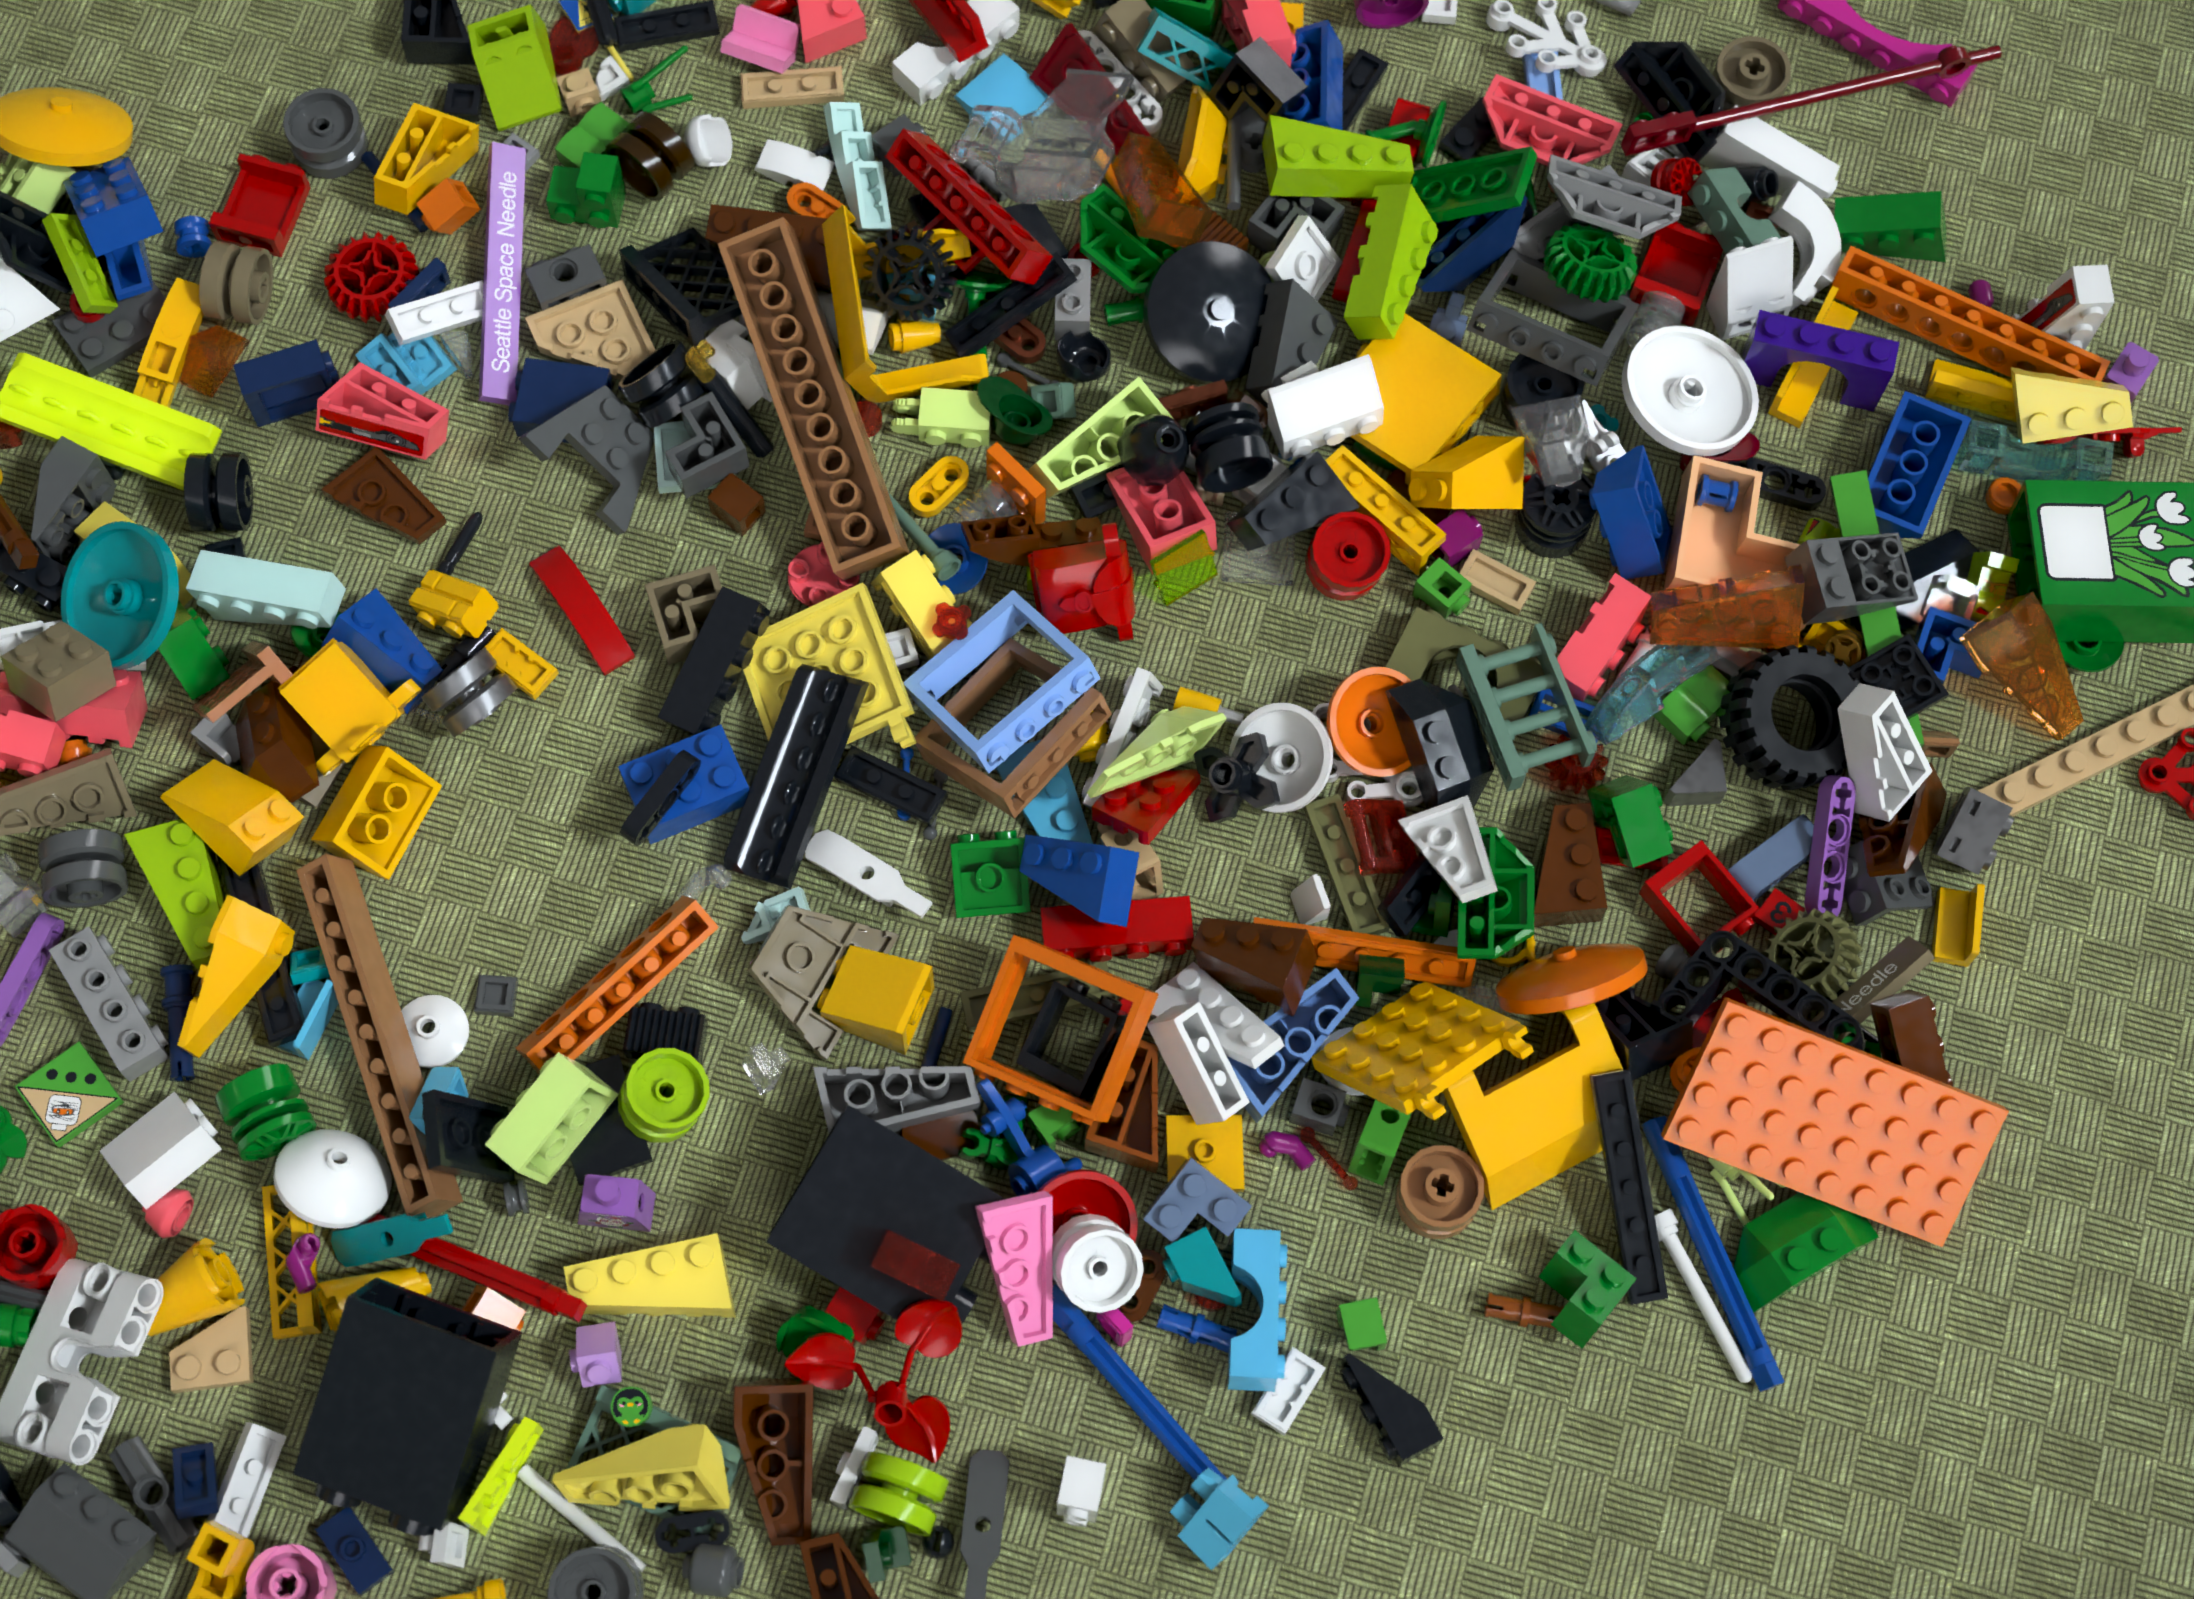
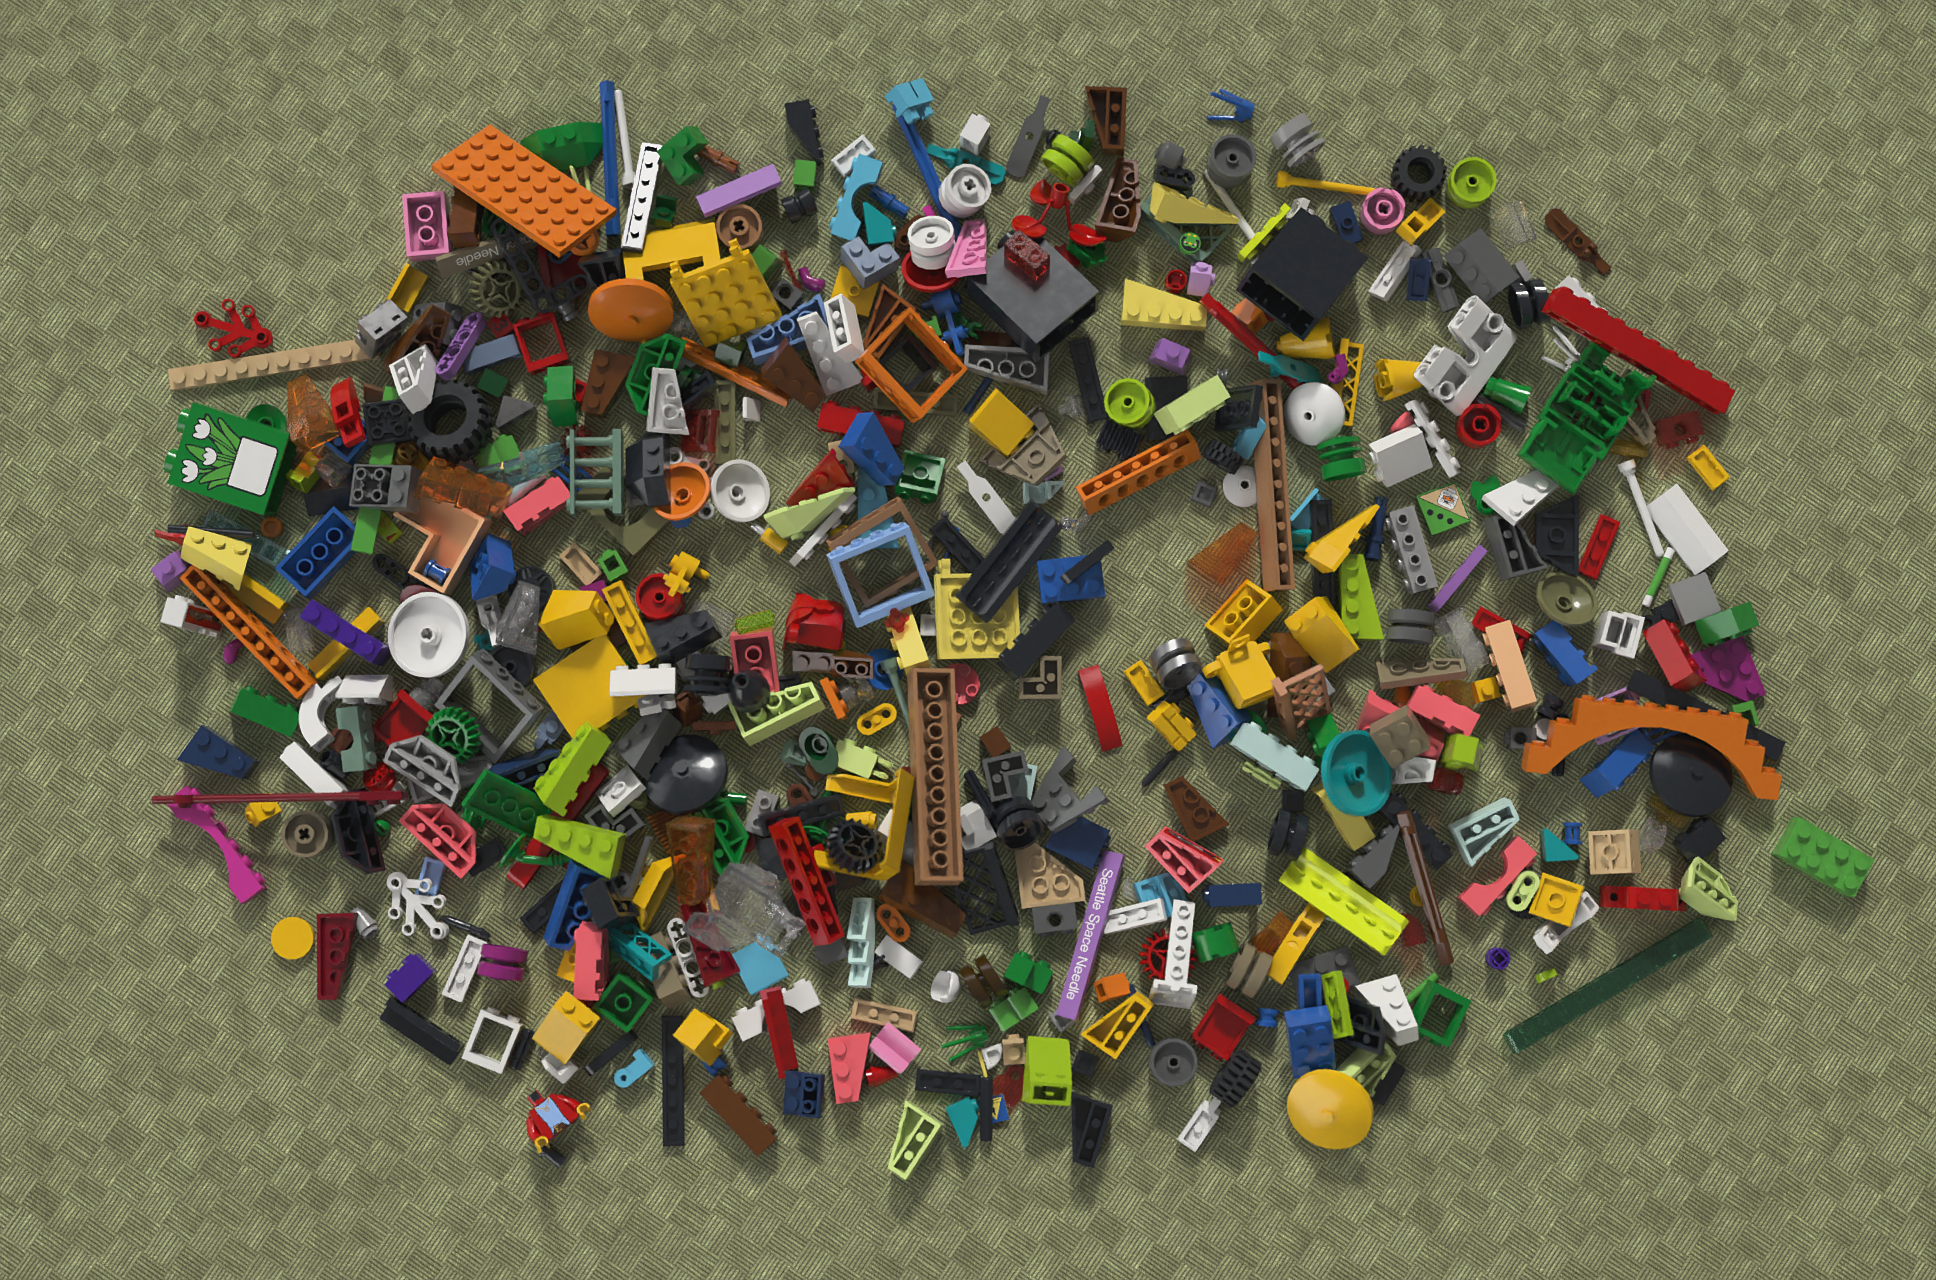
camera: 160 degrees left, 15 degrees up
(142, 1238) = (1433, 438): none -> white wing
(214, 1356) = (1396, 343): tan wing -> none
(219, 128) = (1235, 1078): none -> black tyre
(262, 71) = (1200, 1124): none -> white hinge
(299, 307) = (1215, 942): none -> green brick
(346, 230) = (1174, 989): none -> white bracket
(425, 284) = (1142, 938): dark blue plate -> none
(433, 900) = (1224, 554): none -> clear orange wedge
(476, 1055) = (1223, 457): none -> black tyre
(635, 1337) = (1178, 278): none -> red wheel
(698, 361) = (994, 823): clear yellow arm -> none
(751, 1128) = (1088, 380): none -> black tile
(1044, 1383) = (964, 190): none -> white wheel
(1053, 1443) = (954, 157): none -> teal piece
(1083, 357) = (768, 774): black hair -> none
(1236, 777) = (767, 487): black plant -> none
(1327, 615) = (682, 571): none -> yellow piece
(1353, 1266) = (799, 205): none -> black wheel
(1440, 31) = (479, 931): none -> black piece
(1467, 1257) = (739, 190): none -> medium lavender slope
(1581, 1182) = (664, 211): none -> dark green bracket
(1751, 811) = (493, 383): none -> dark green panel
(1831, 110) = (261, 811): none -> yellow bracket
(1907, 372) = (298, 632): none -> clear slope
(1930, 150) = (217, 753): none -> dark blue wedge
(1972, 683) = (346, 412): none -> red slope
(1977, 1030) = (426, 225): none -> bright pink brick
(2088, 440) = (232, 533): none -> black bar

